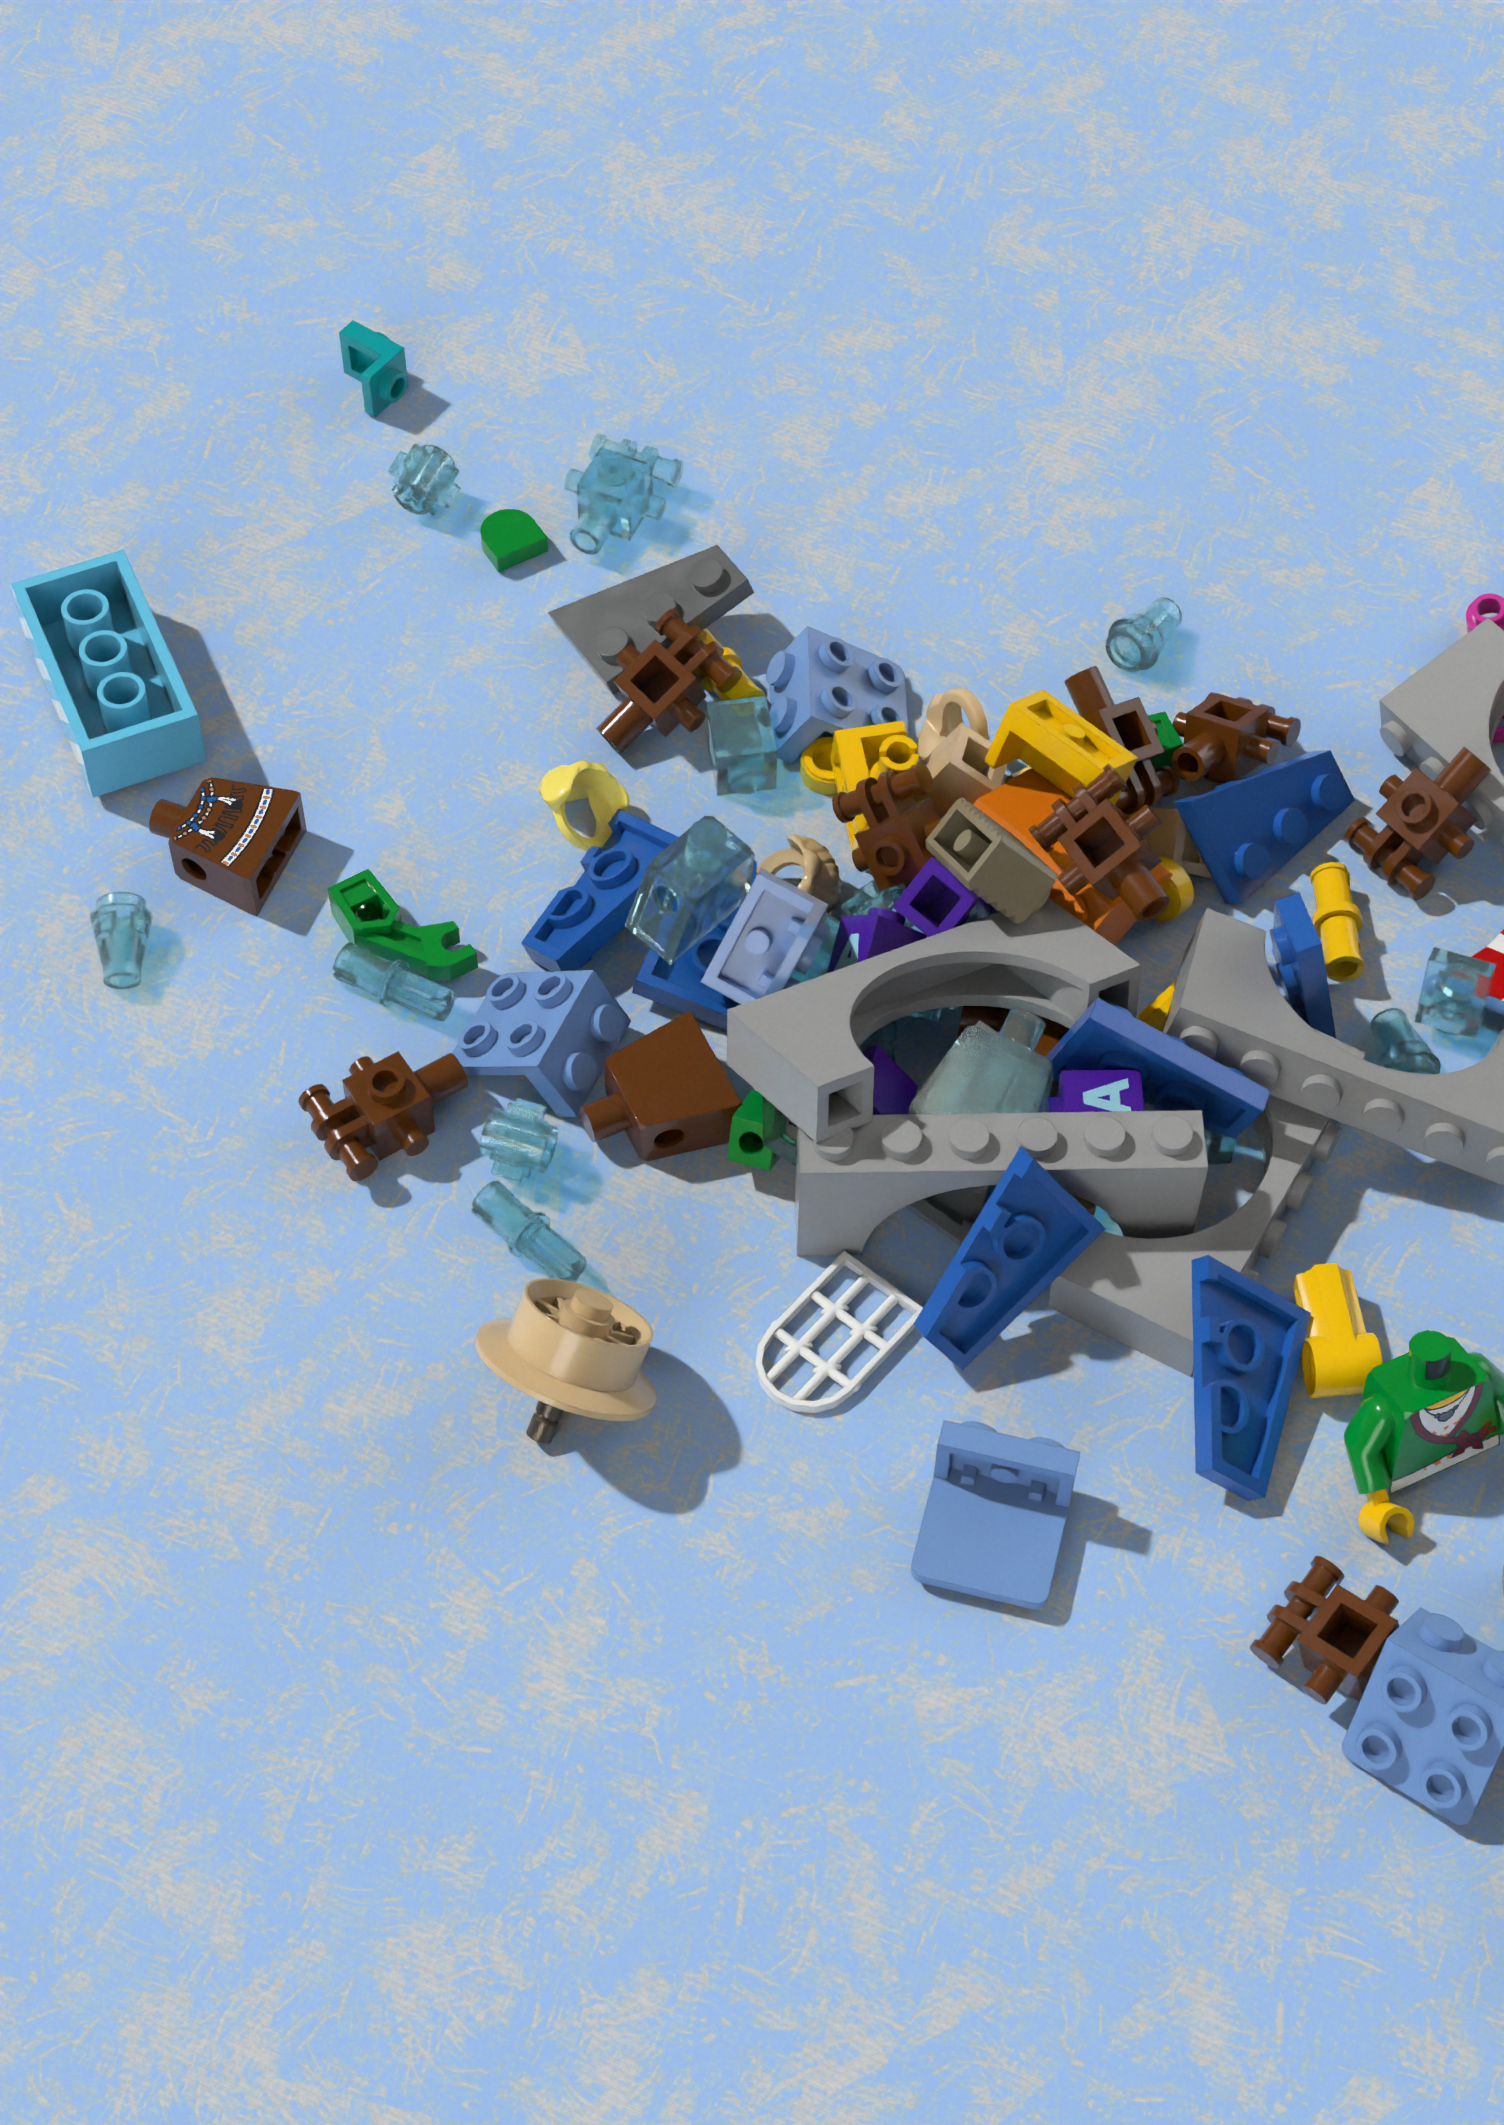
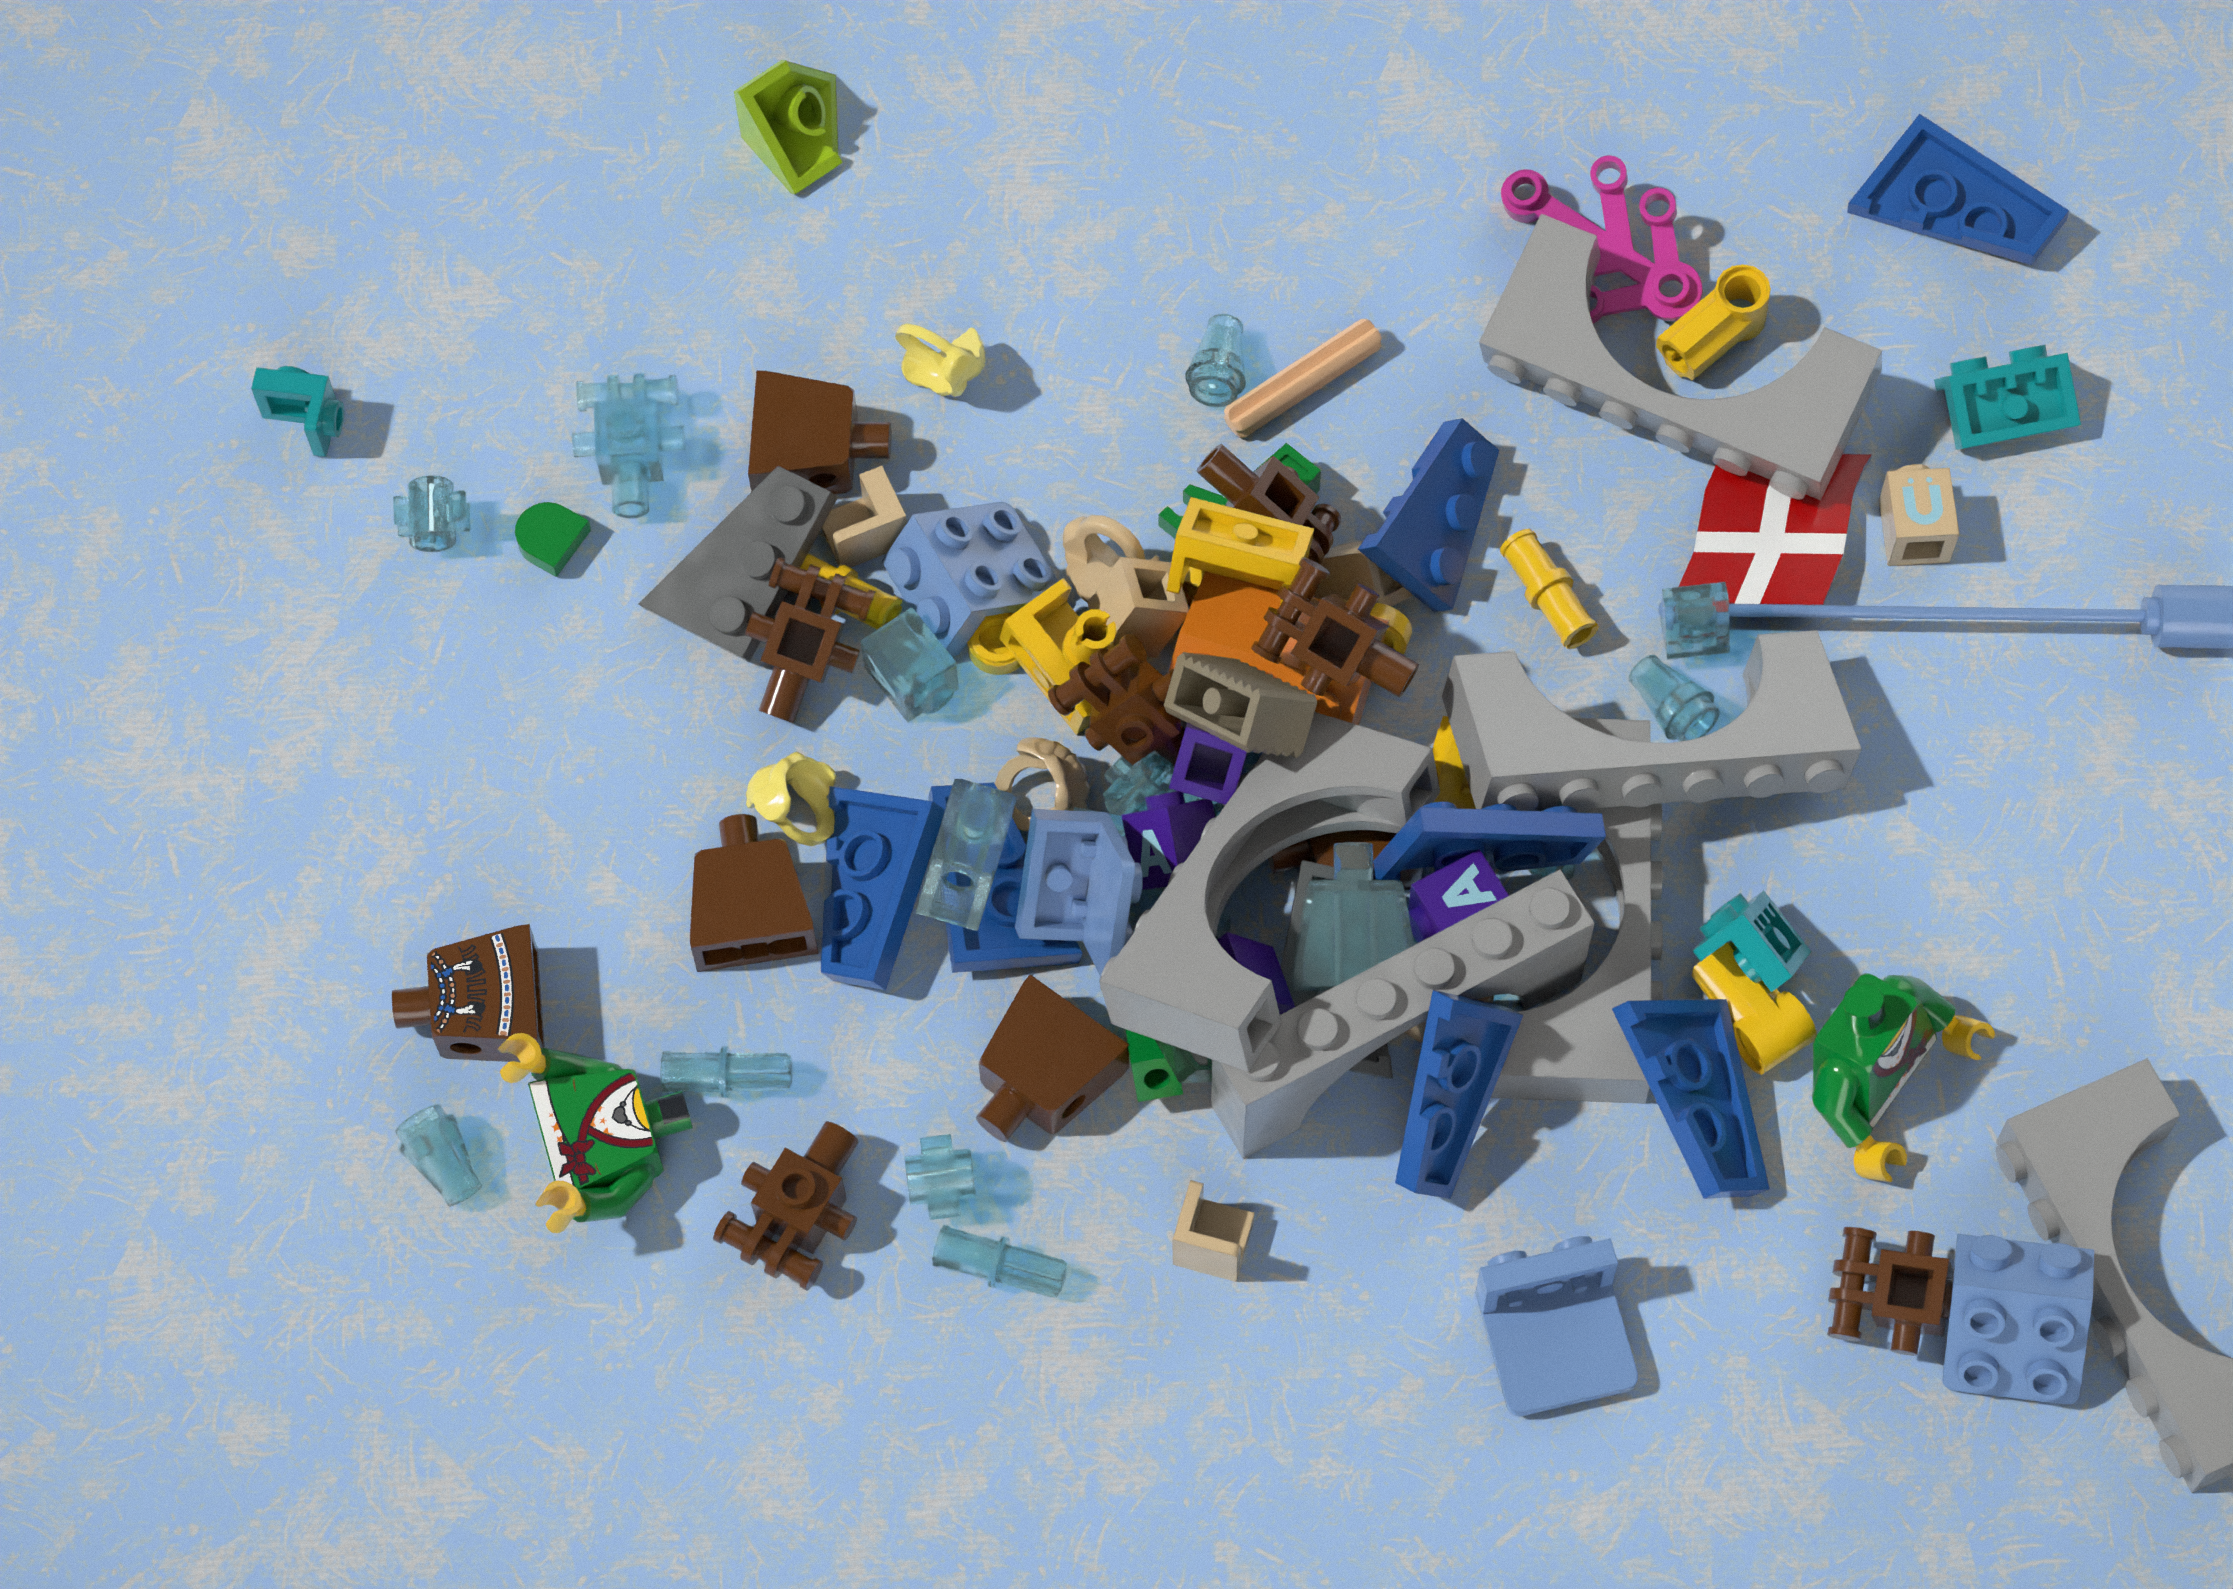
camera: 25 degrees left, 10 degrees up
(109, 673) = (254, 880): medium azure brick -> none
(254, 973) = (593, 1130): none -> torso
(363, 899) = (694, 1028): green piece -> none
(491, 862) = (747, 901): none -> reddish brown torso
(549, 1029) = (895, 1057): medium blue bracket -> none
(572, 1354) = (1120, 1368): tan piece -> none
(723, 1295) = (1211, 1235): none -> tan panel
(761, 636) = (866, 525): none -> tan panel
(769, 544) = (811, 431): none -> reddish brown torso
(830, 1312) = (1340, 1207): white window -> none
(892, 323) = (791, 122): none -> lime slope
(908, 545) = (942, 371): none -> light yellow piece
(1214, 675) = (1302, 378): none -> light nougat axle
(1229, 738) = (1358, 443): reddish brown piece -> none
(1301, 964) = (1557, 667): blue wing -> none
(1368, 1272) = (1764, 939): none -> teal bracket
(1421, 821) = (1580, 447): reddish brown piece -> none

